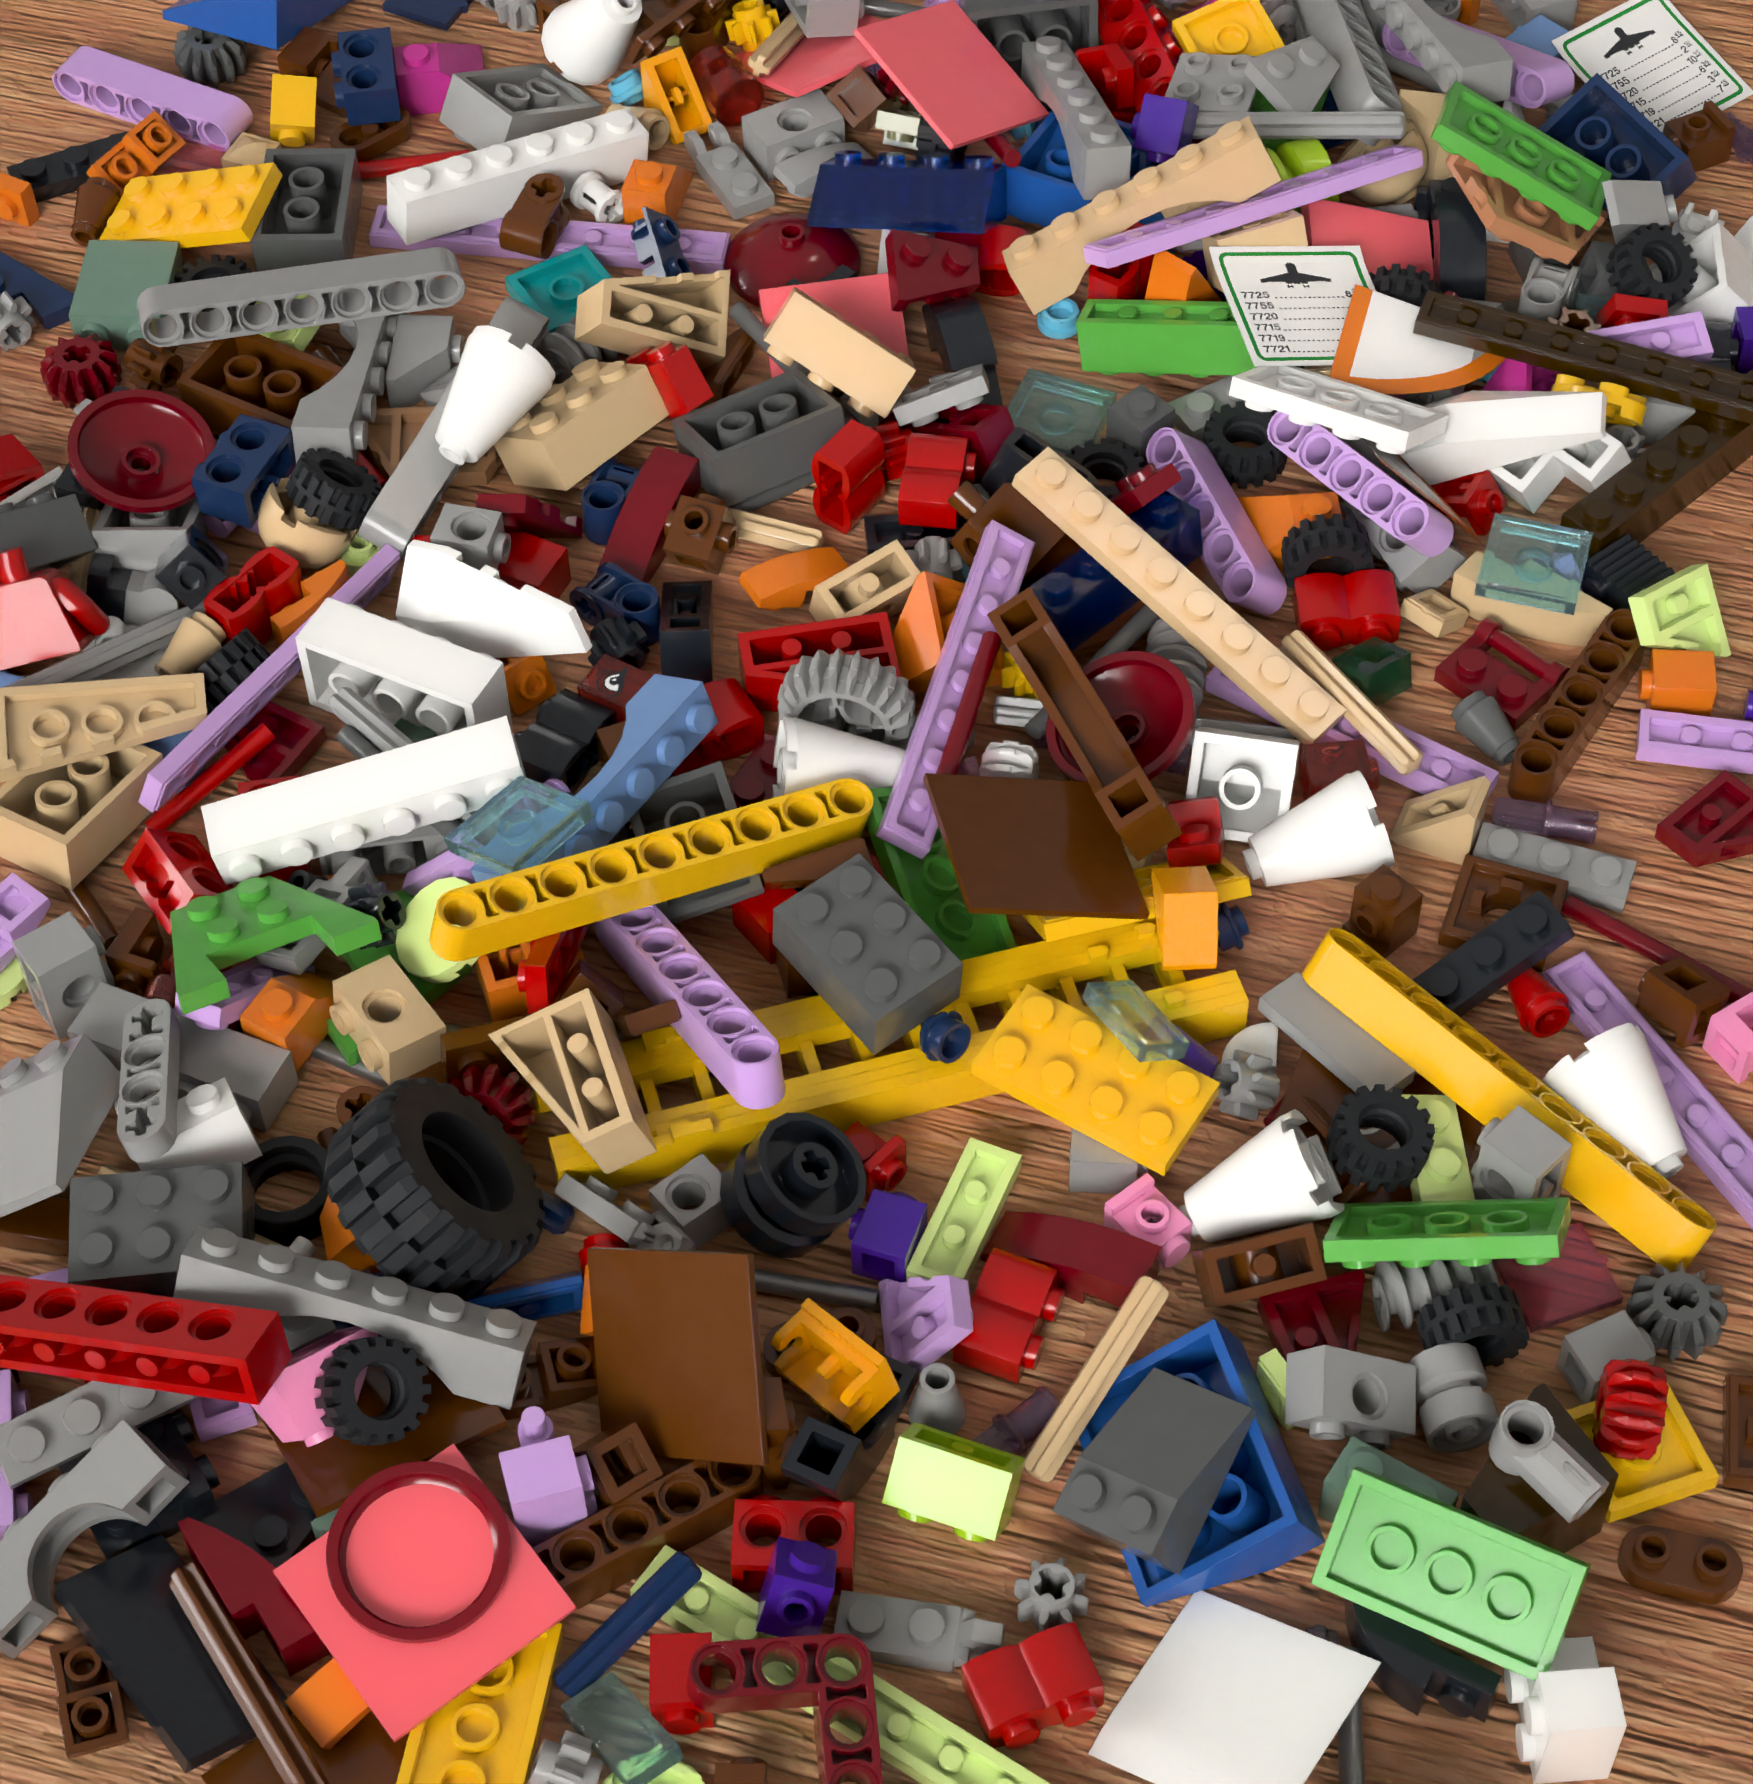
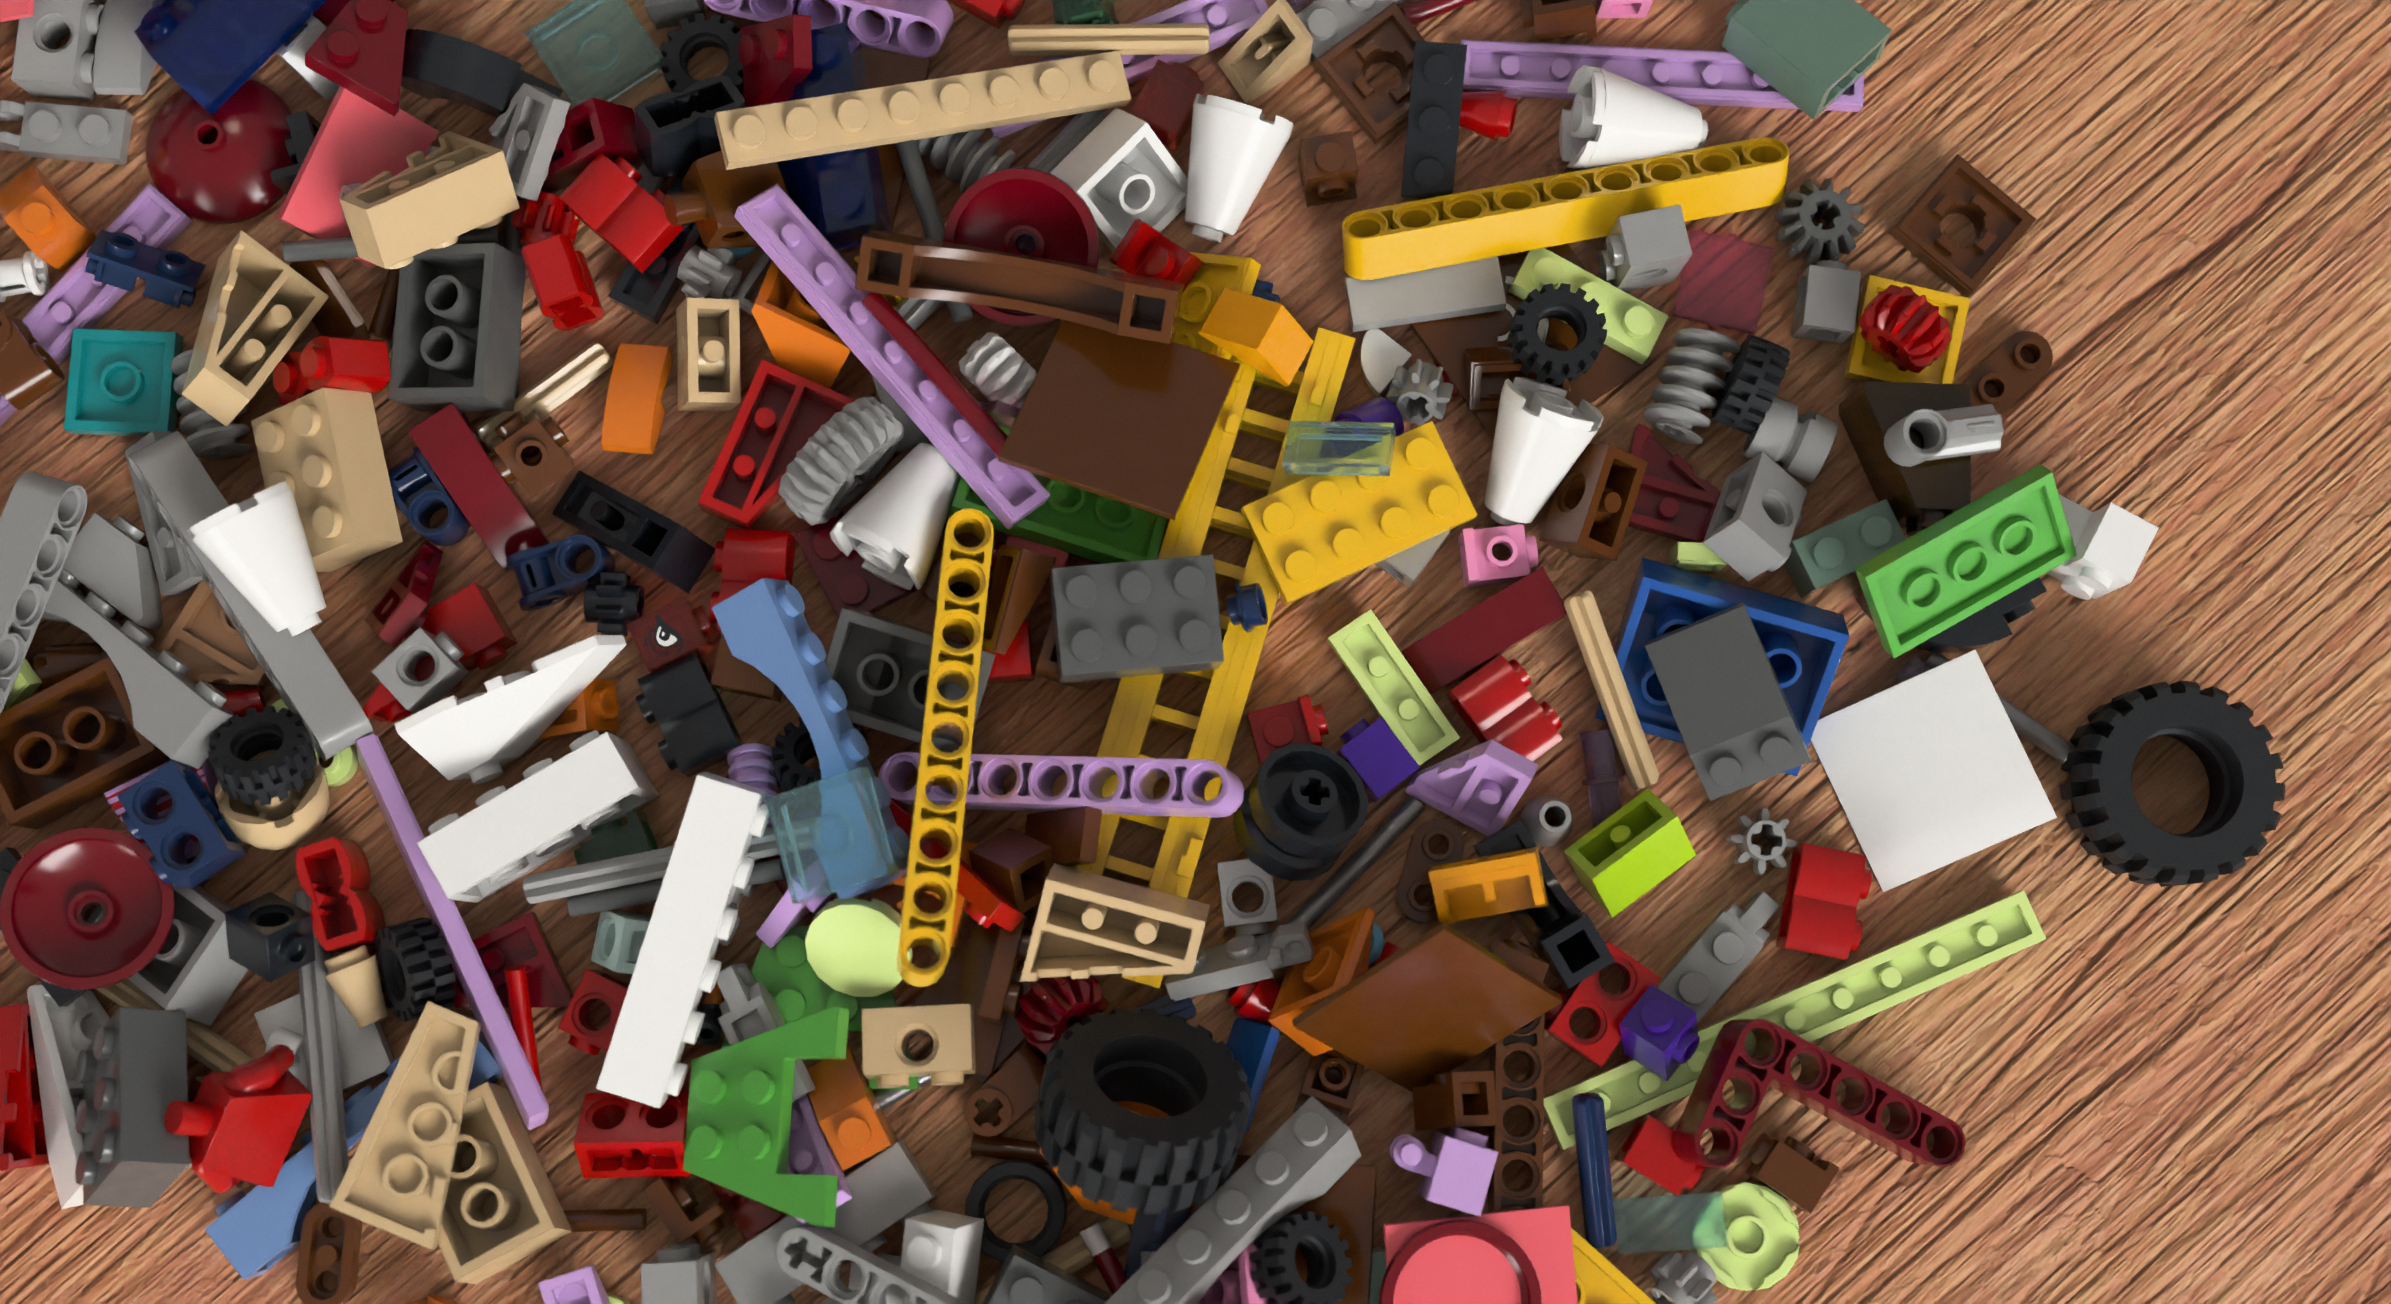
camera: 60 degrees left, 30 degrees up
(128, 593) = (244, 1008): leg -> none
(315, 591) = (367, 827): orange slope -> none
(381, 904) = (799, 993): black gear -> none
(1448, 1230) = (1678, 345): bright green plate -> none

